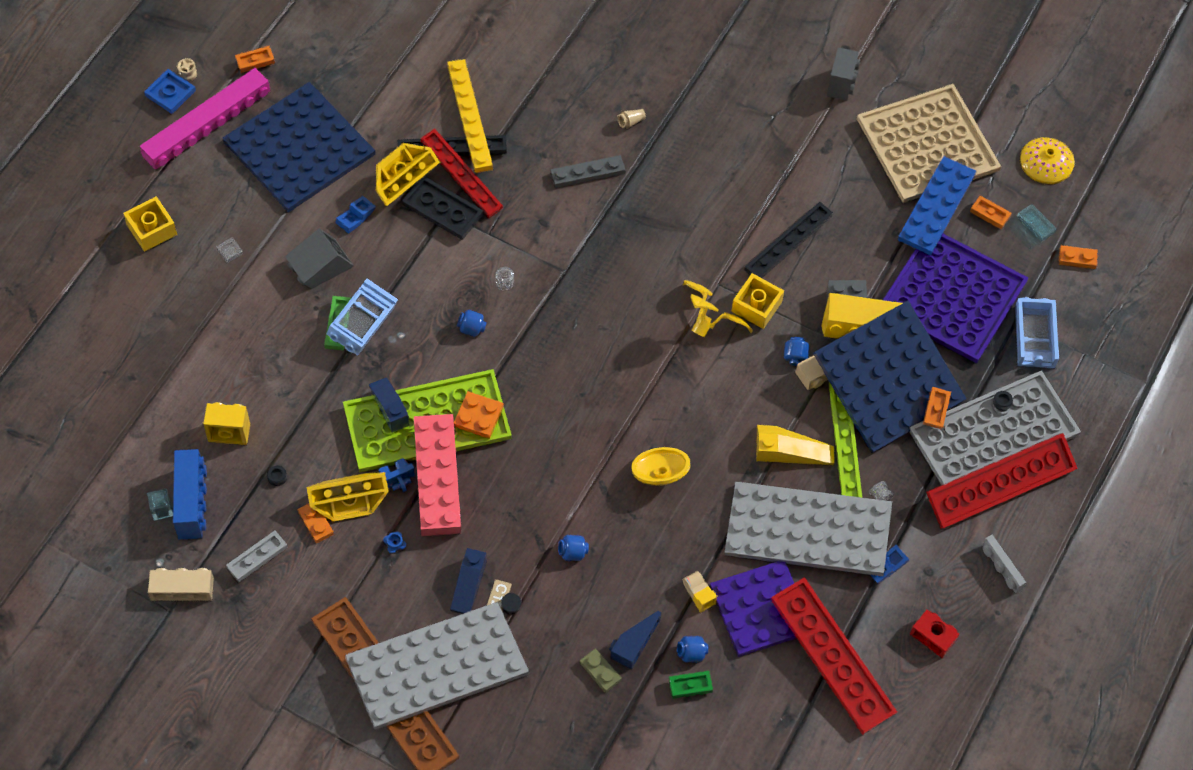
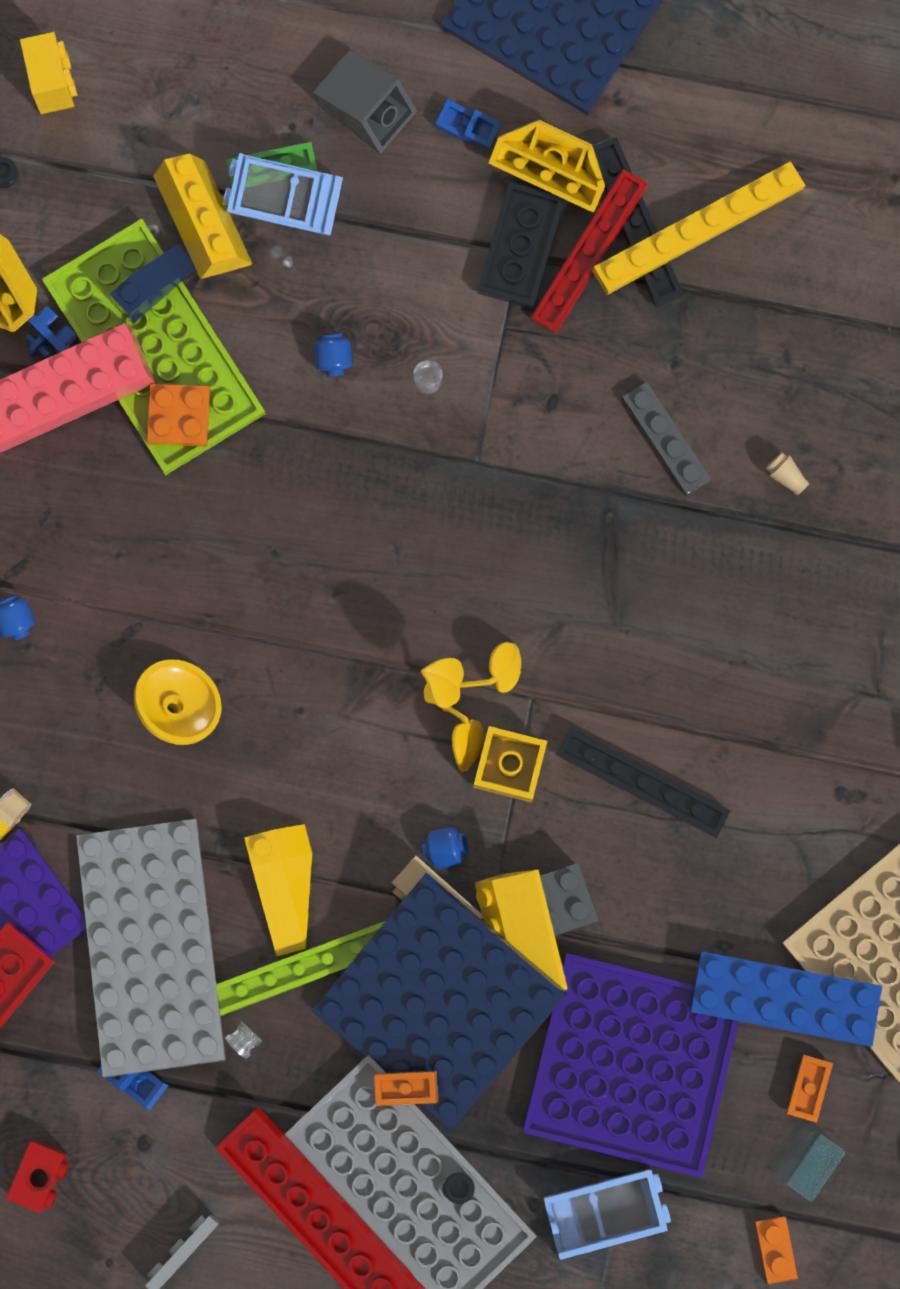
camera: 75 degrees right, 20 degrees up
(356, 366) = (201, 216): none -> yellow slope

